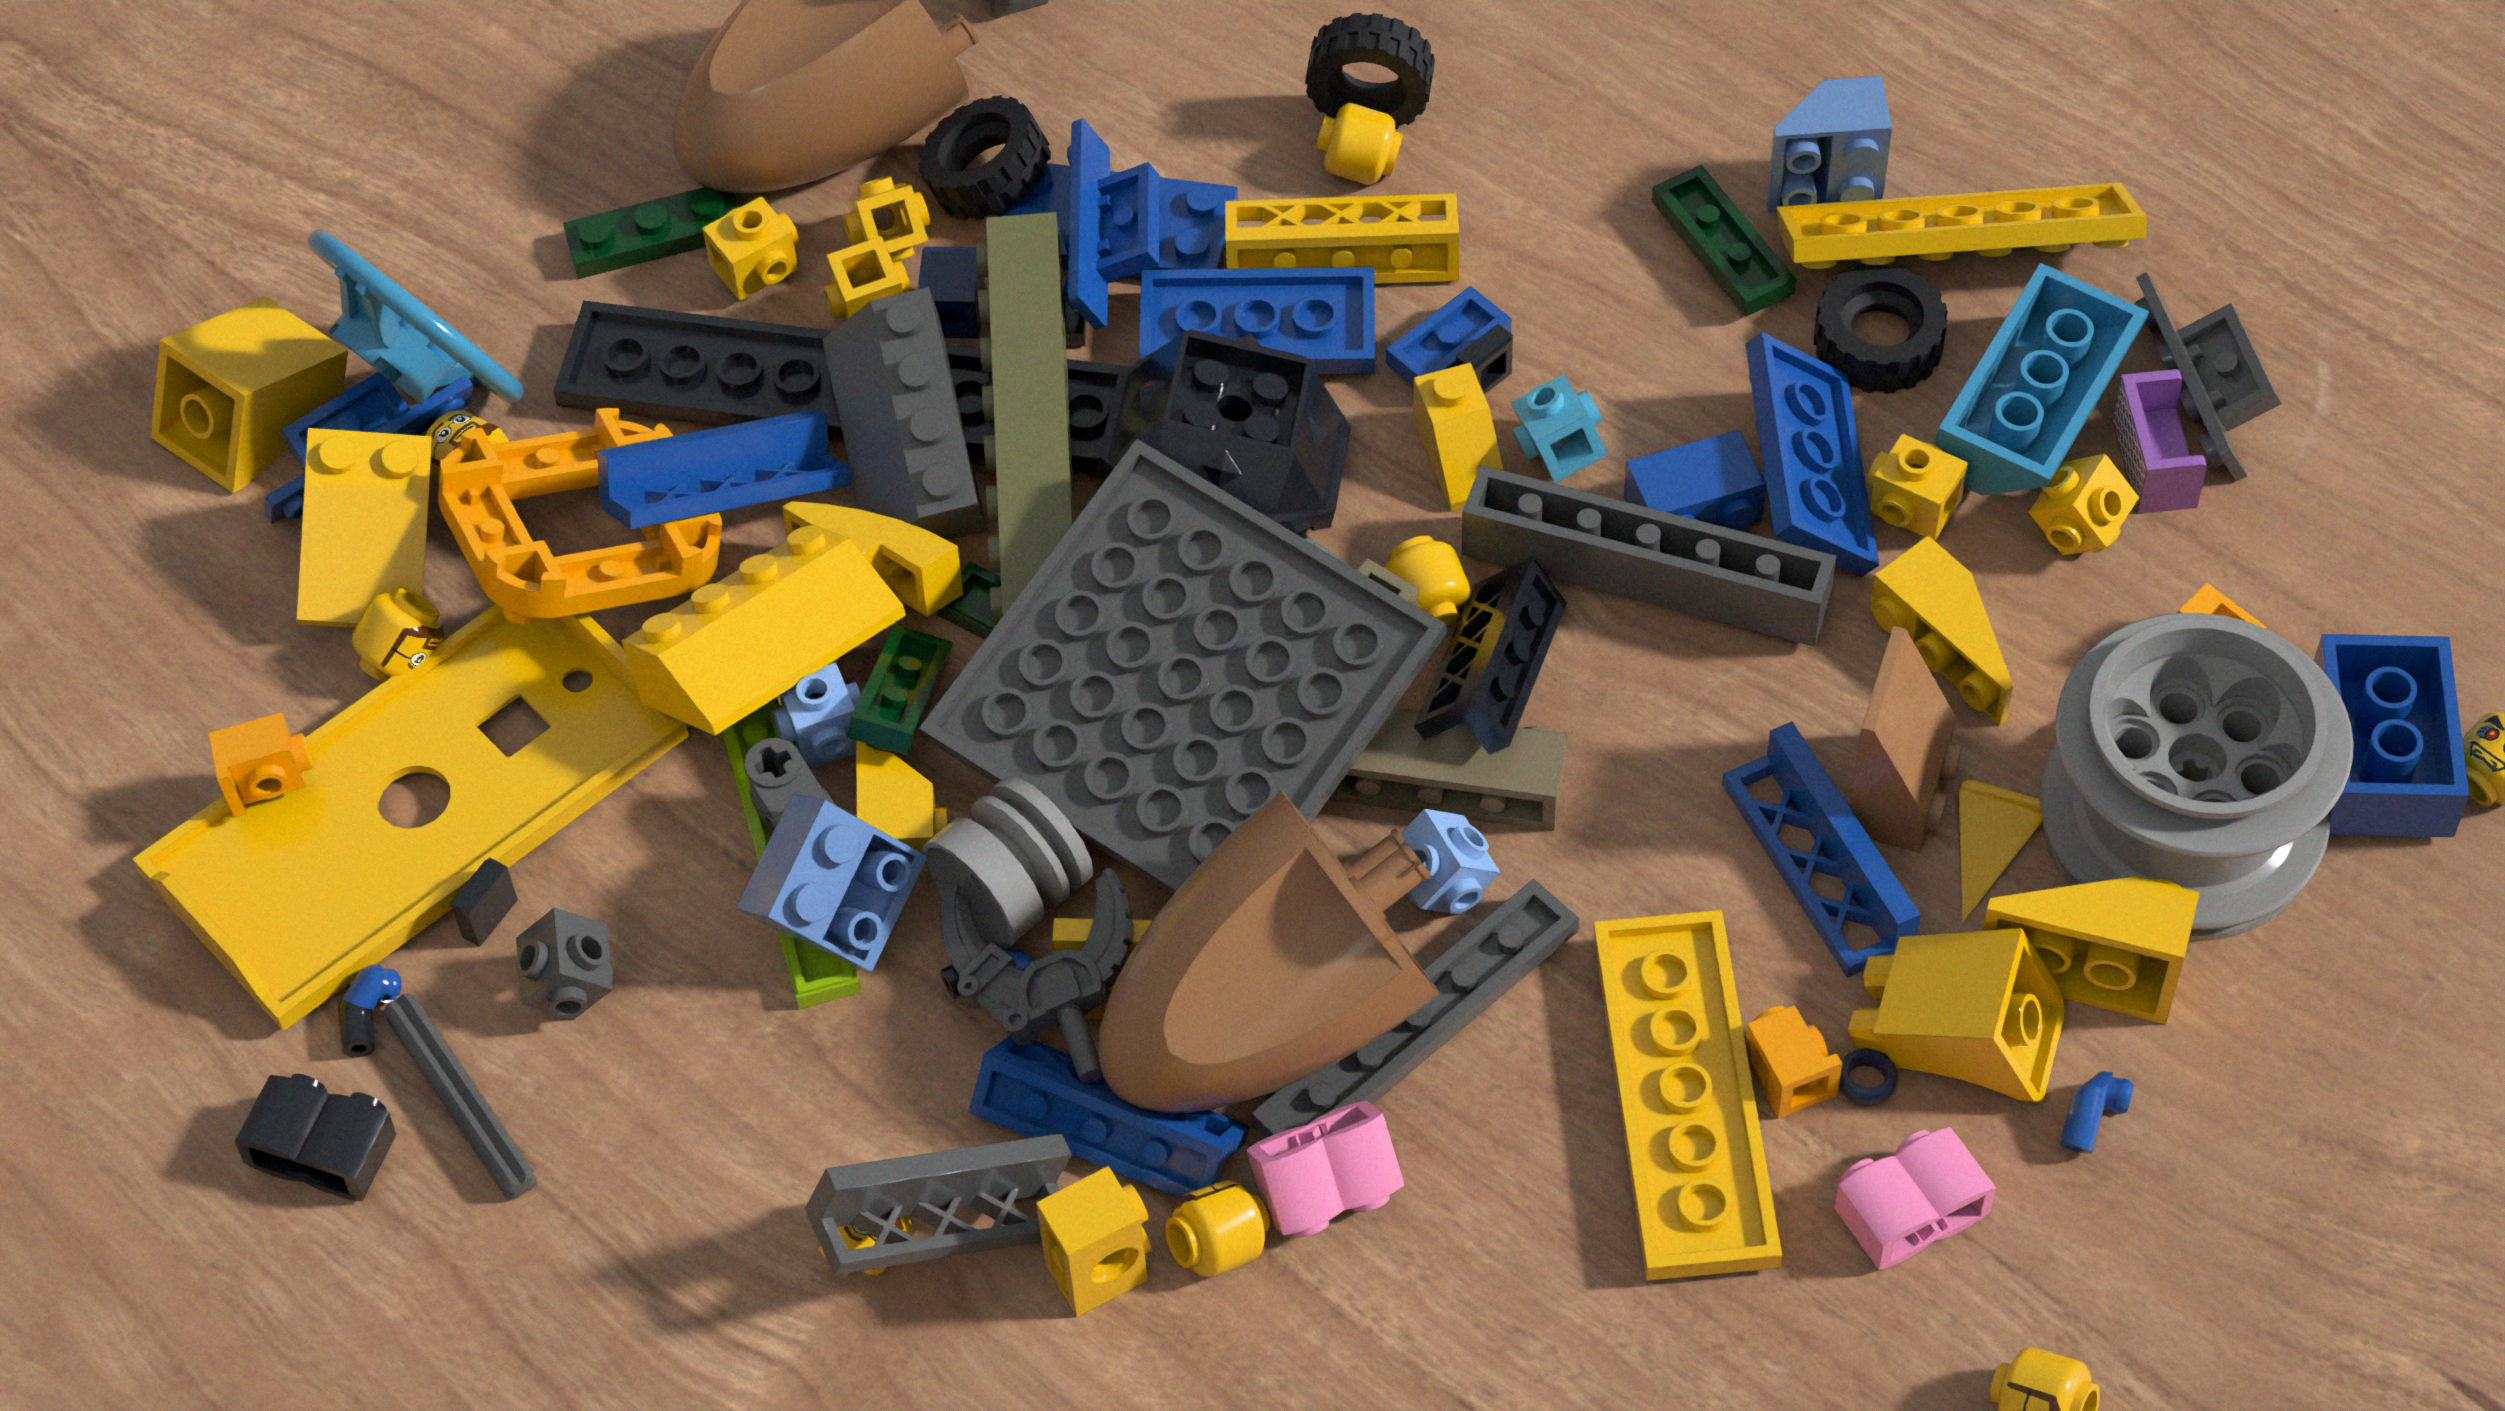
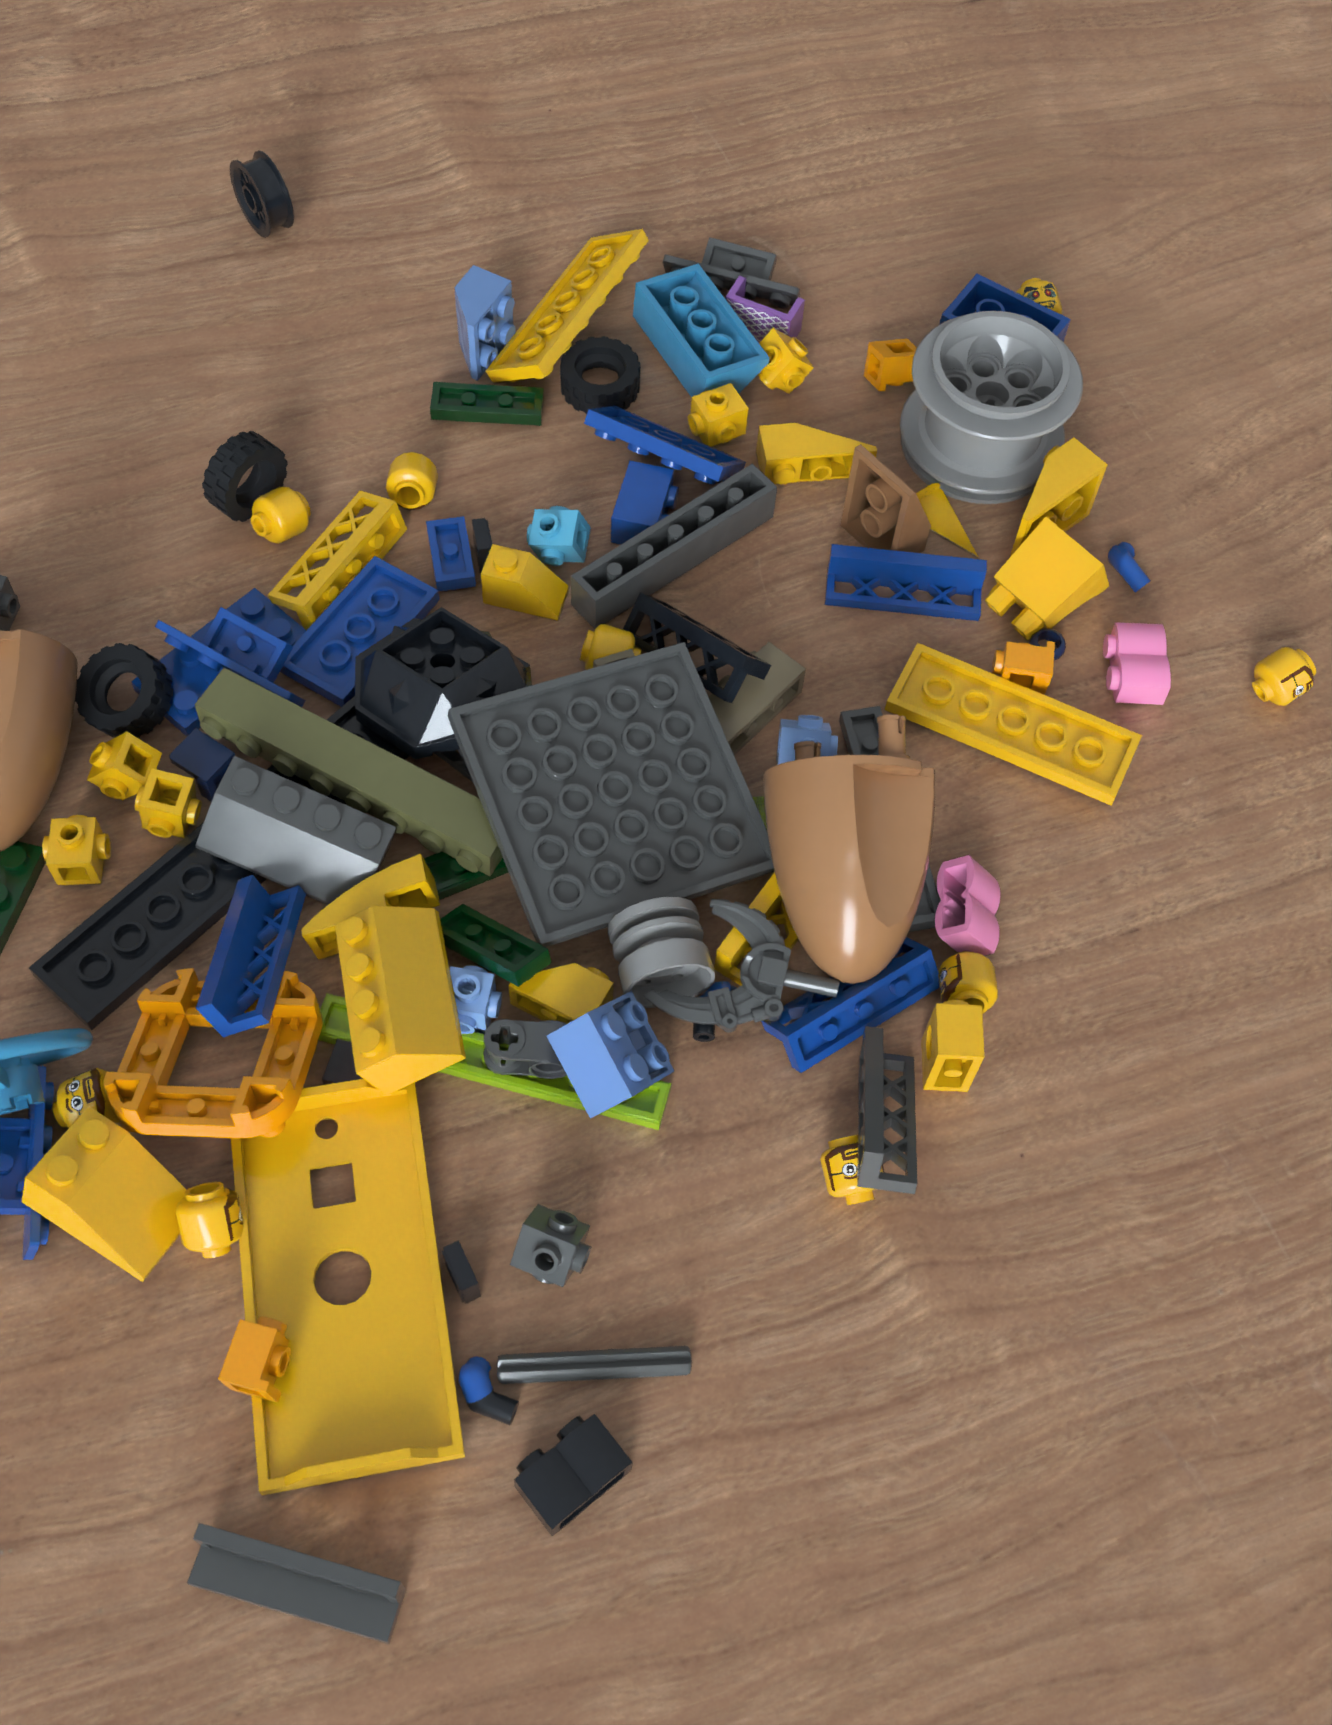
camera: 65 degrees left, 5 degrees up
(61, 956) = (296, 1584): none -> dark grey fence
(1523, 236) = (411, 480): none -> yellow head

